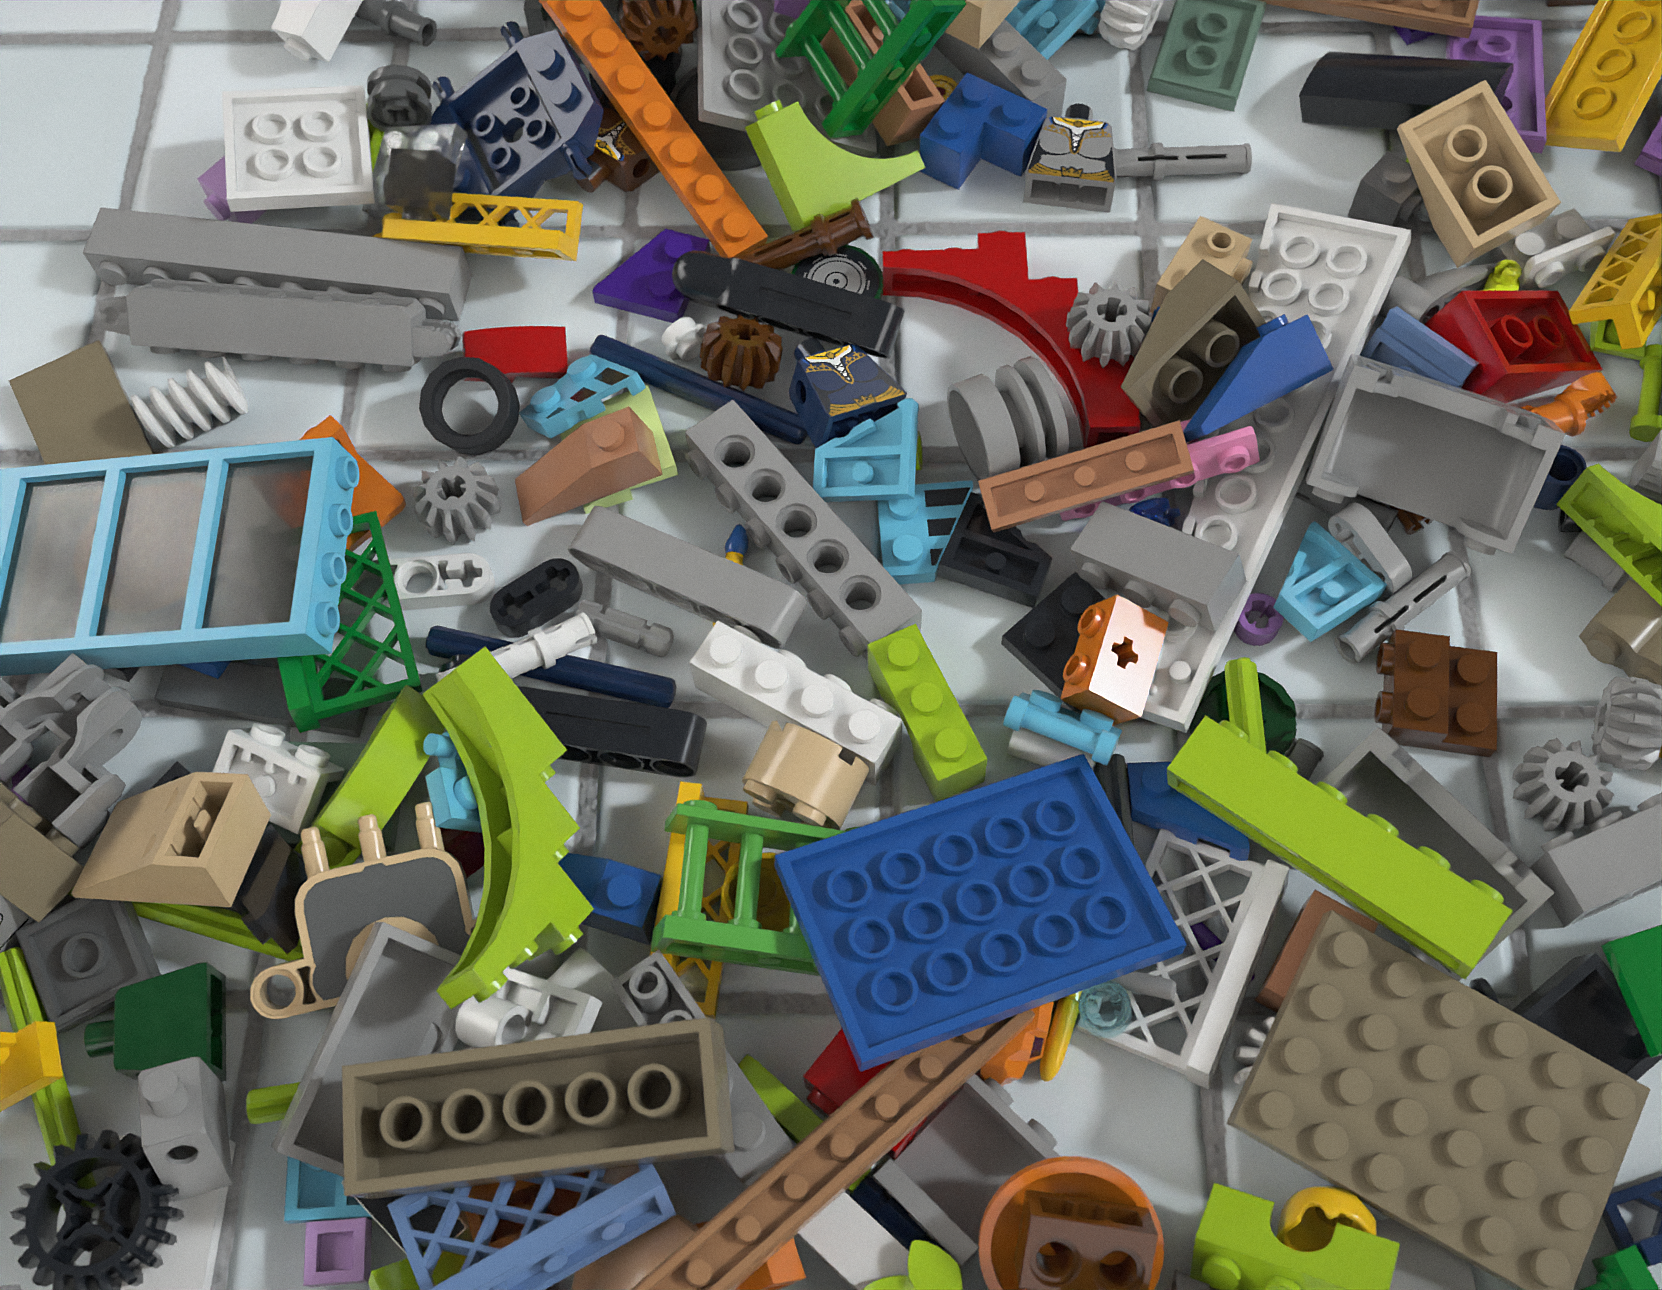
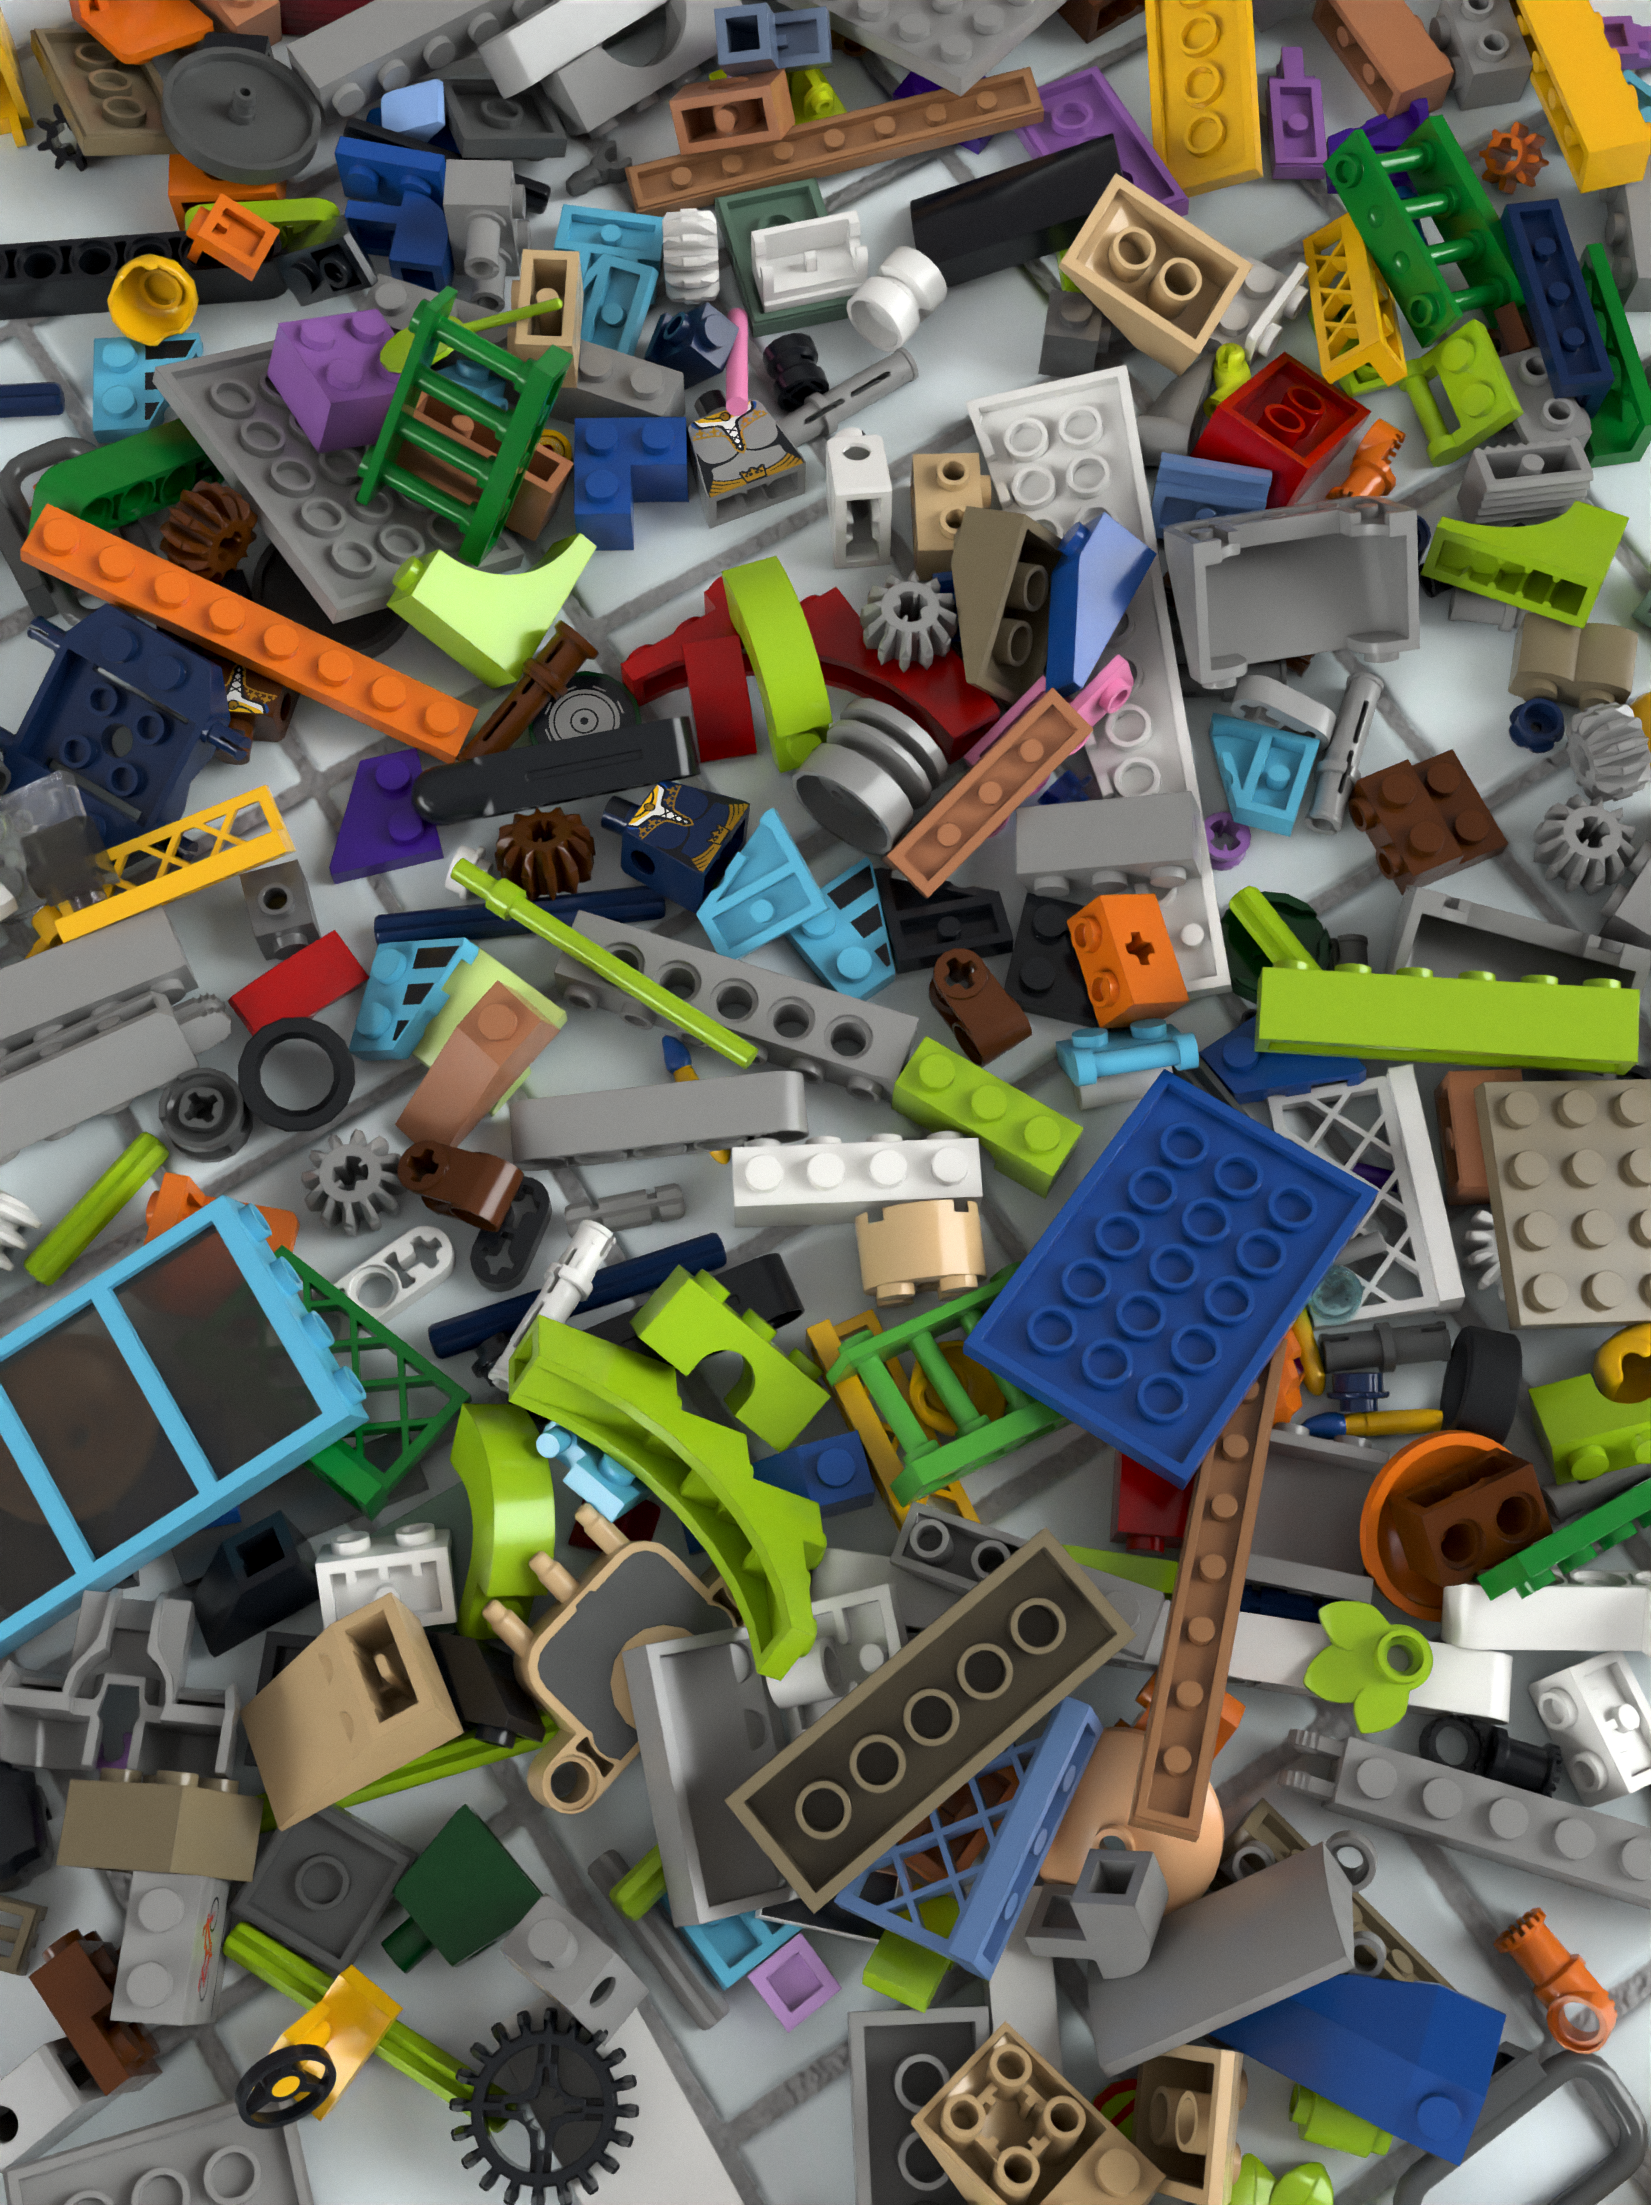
camera: 40 degrees left, 5 degrees up
(194, 722) = (255, 1583): none -> black slope
(269, 1171) = (664, 1949): none -> light grey axle
(288, 421) = (96, 1209): none -> lime axle
(392, 401) = (205, 1115): none -> dark grey wheel
(520, 537) = (460, 1182): none -> reddish brown piece
(541, 293) = (280, 909): none -> flat silver brick
(601, 722) = (691, 1320): none -> lime arch
(688, 368) = (510, 902): none -> lime bar
(939, 313) = (719, 698): none -> red slope
(976, 635) = (983, 1015): none -> reddish brown piece
(994, 298) = (782, 658): none -> lime arch
(1075, 1096) = (1358, 1391): none -> dark blue plate
(1077, 1133) = (1375, 1423): none -> yellow piece
(1091, 67) = (693, 343): none -> dark blue brick
(1115, 94) = (738, 366): none -> bright pink bar
(1121, 1076) = (1385, 1347): none -> dark grey pin
(1142, 208) = (858, 472): none -> white torso
(1157, 120) = (793, 365): none -> black wheel
(1176, 1152) = (1482, 1383): none -> black tyre
(1216, 50) = (808, 261): none -> white hinge
(1262, 110) = (897, 299): none -> white wheel
(1593, 665) = (1541, 714): none -> dark blue plate

